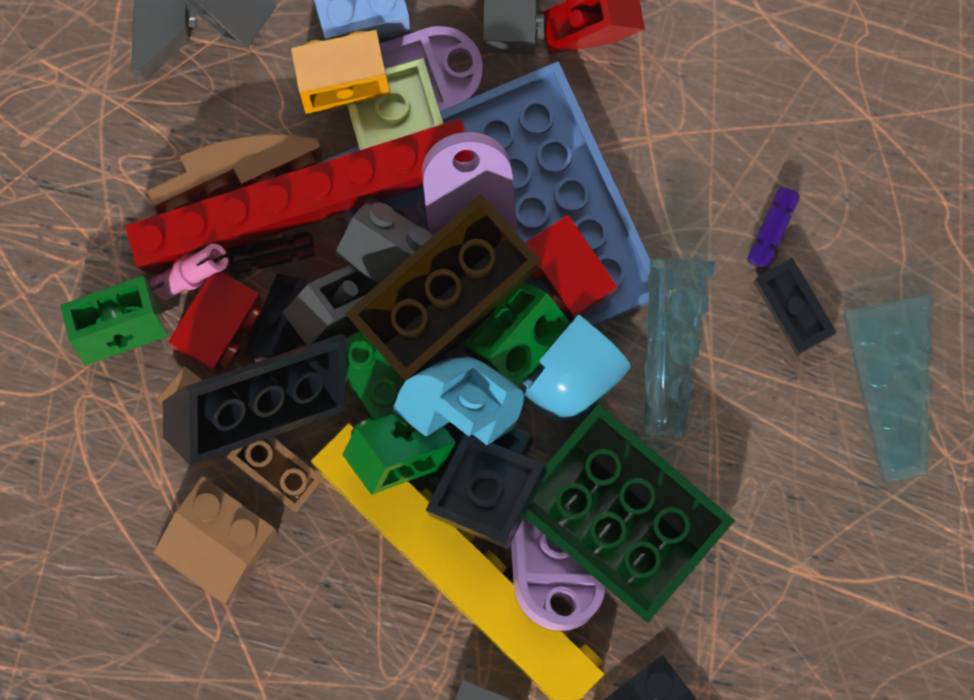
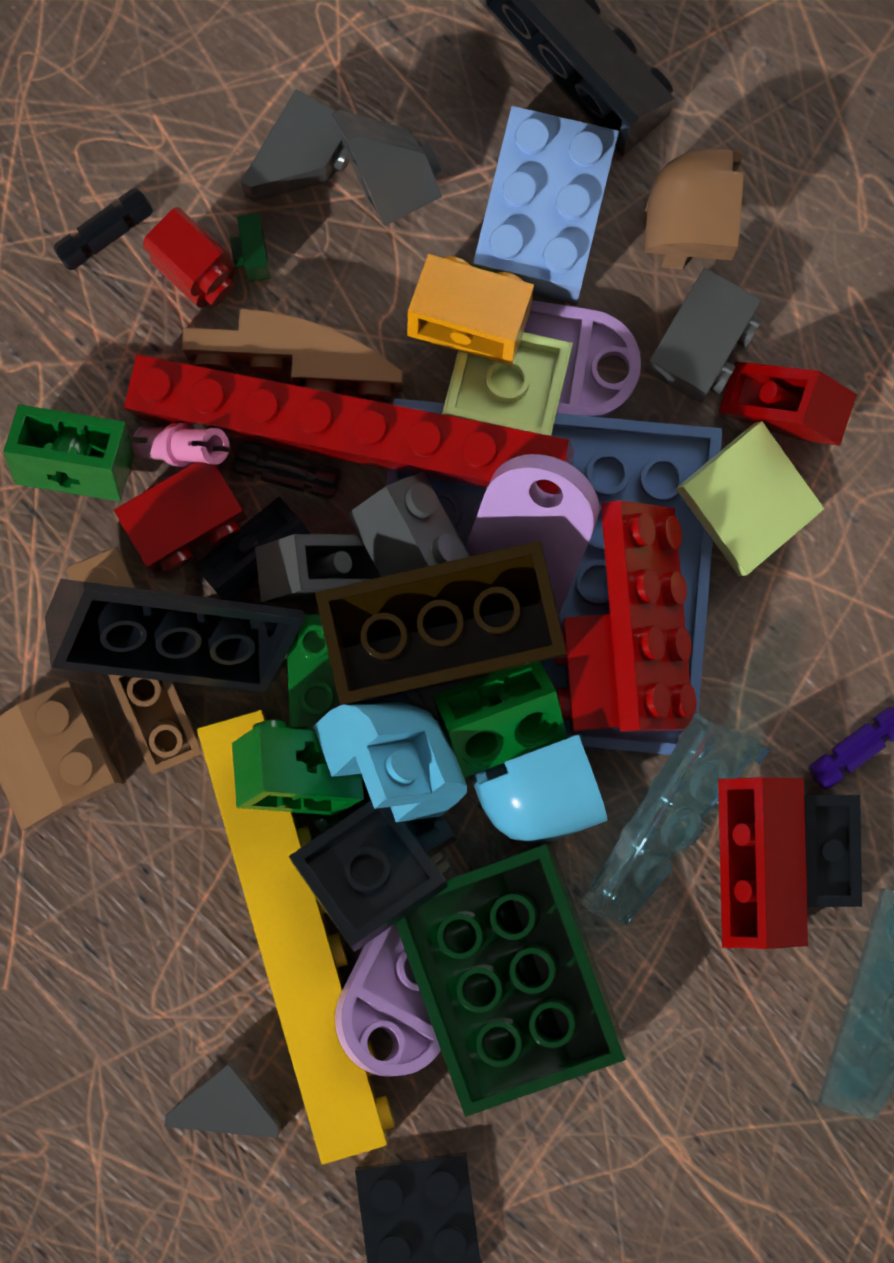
camera: 35 degrees right, 5 degrees up
(49, 156) = (103, 229): none -> black axle
(126, 141) = (190, 259): none -> red brick
(162, 113) = (250, 248): none -> dark green plate
(581, 211) = (648, 616): none -> red plate
(604, 98) = (750, 498): none -> yellowish green tile
(752, 338) = (763, 863): none -> red brick

